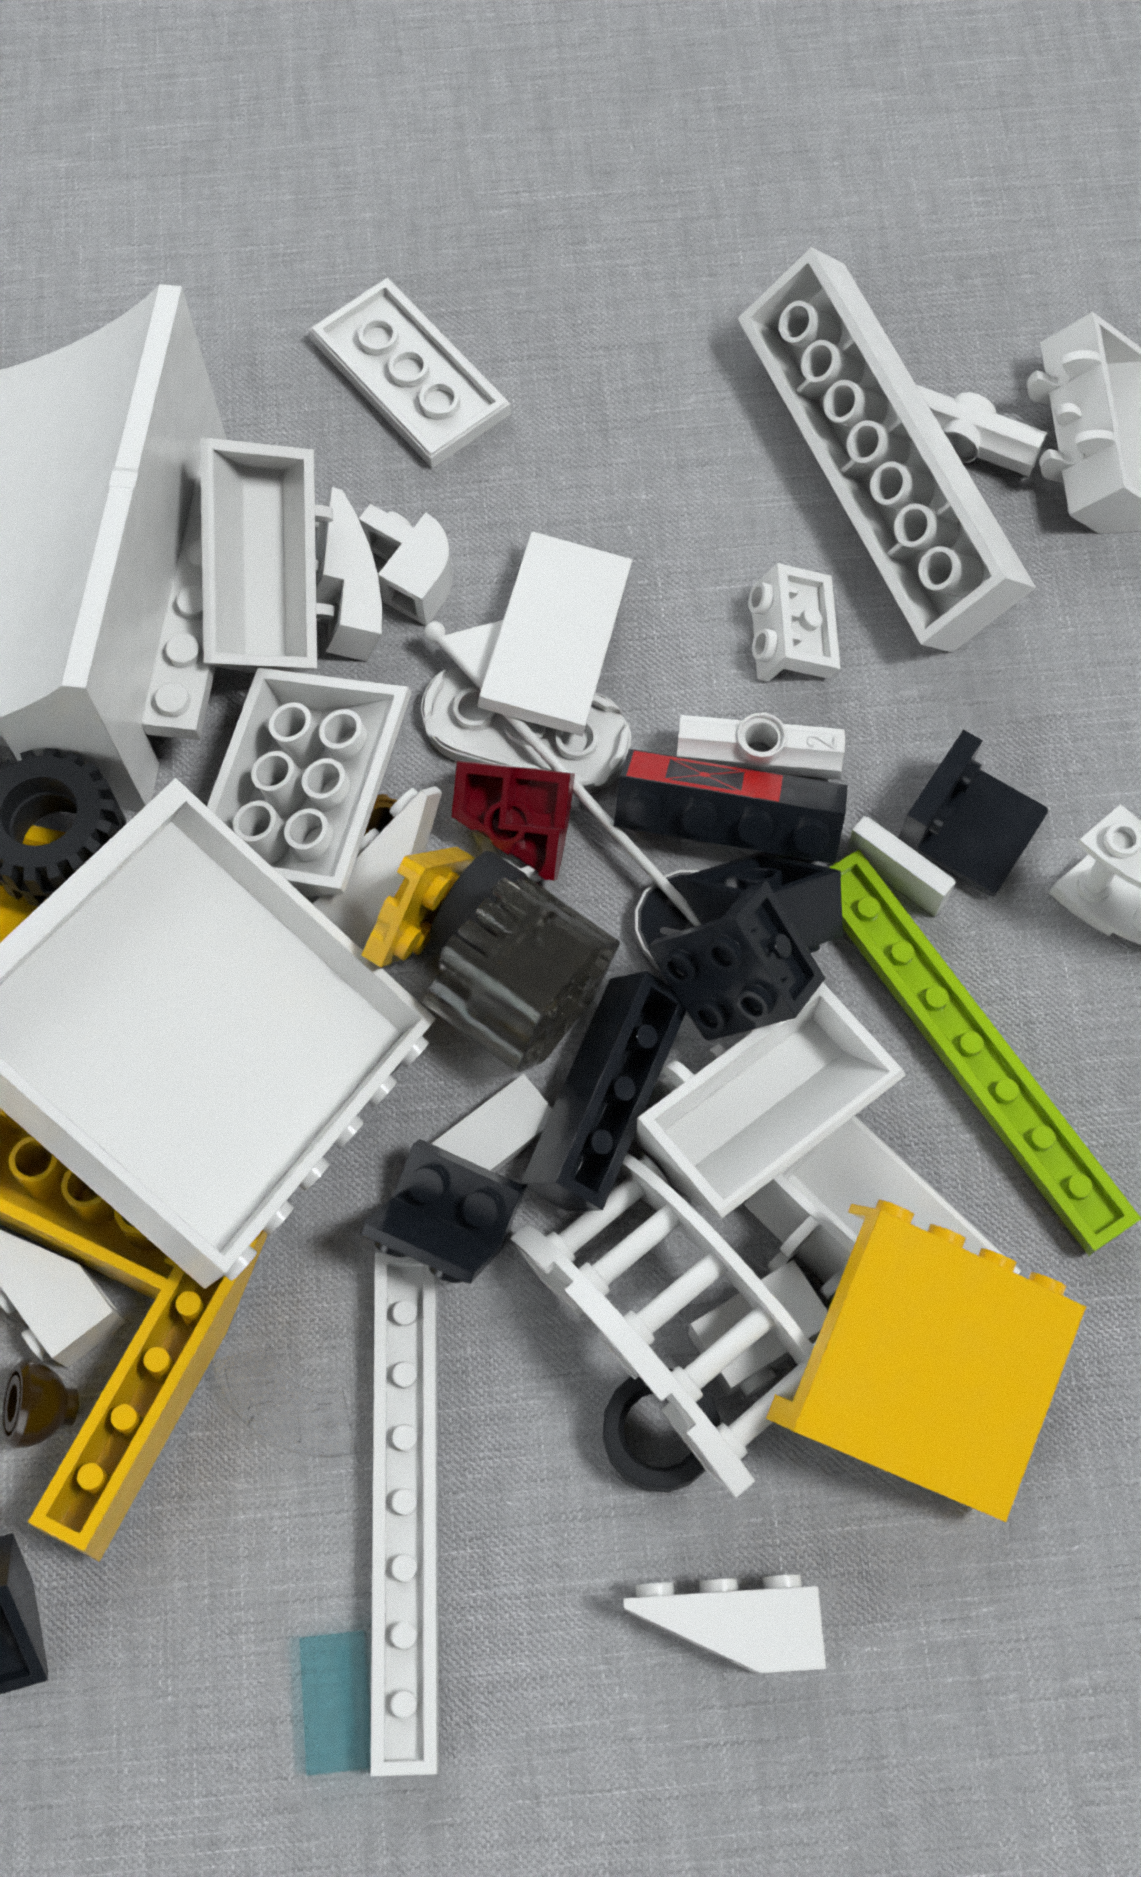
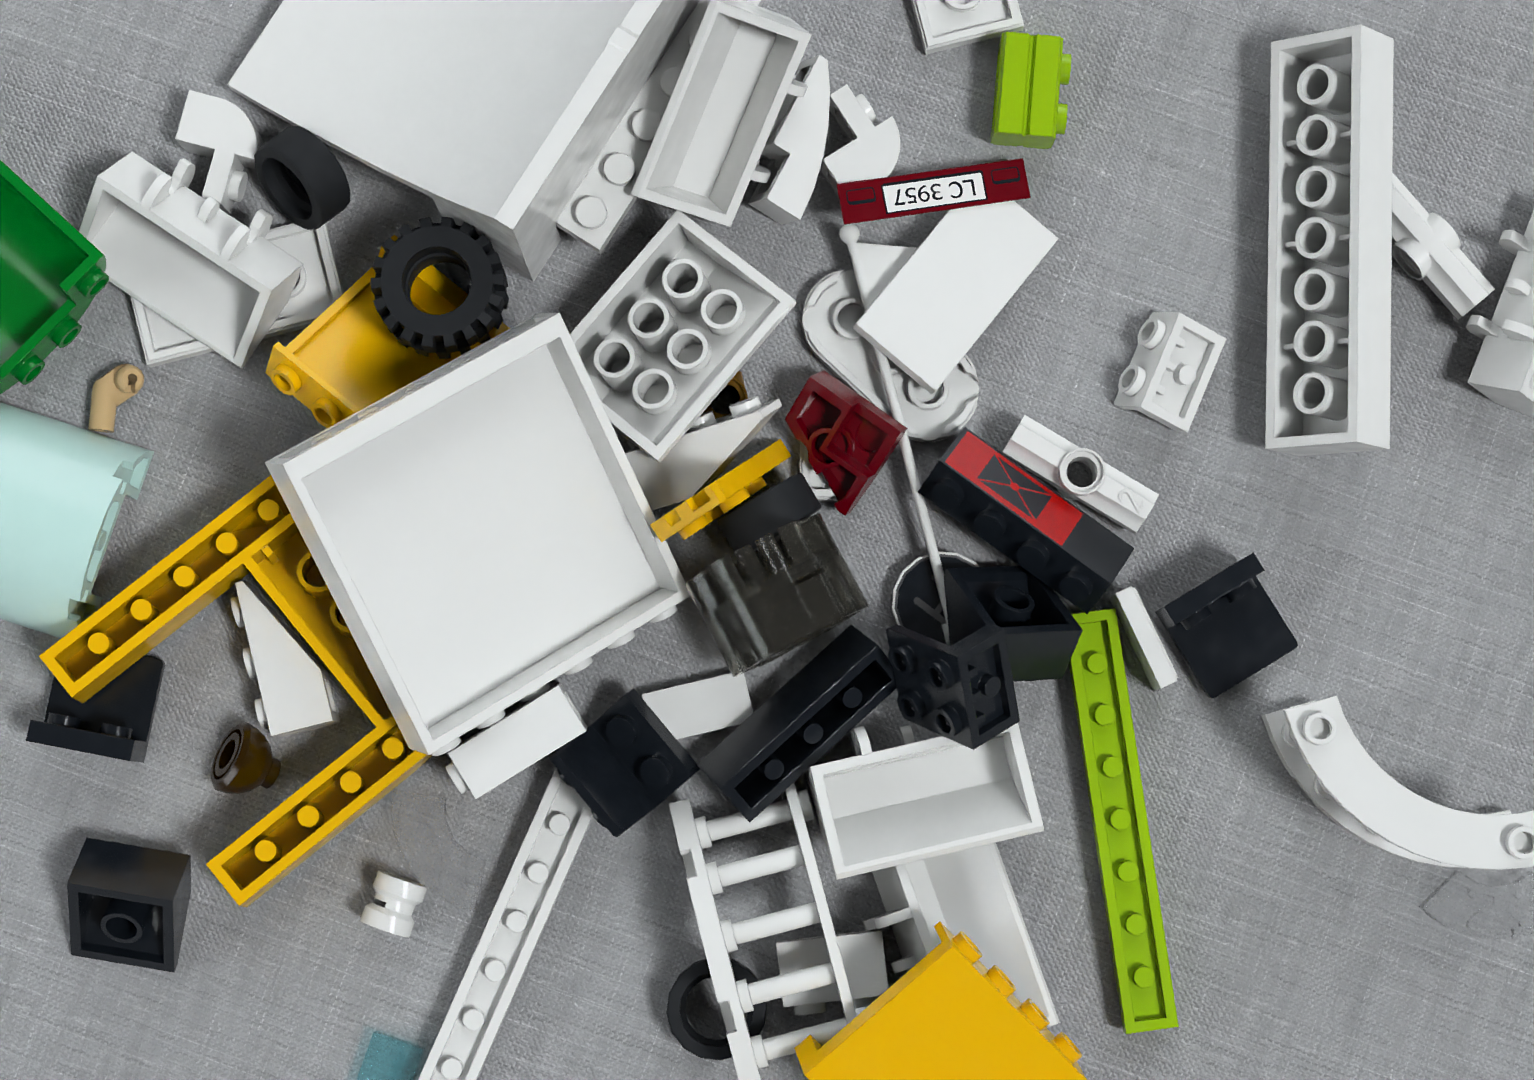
camera: 20 degrees right, 15 degrees up
(262, 1482) = (393, 904): none -> white wheel
(317, 1240) = (515, 742): none -> white window
(494, 561) = (933, 191): none -> sticker
(541, 450) = (1028, 90): none -> lime brick

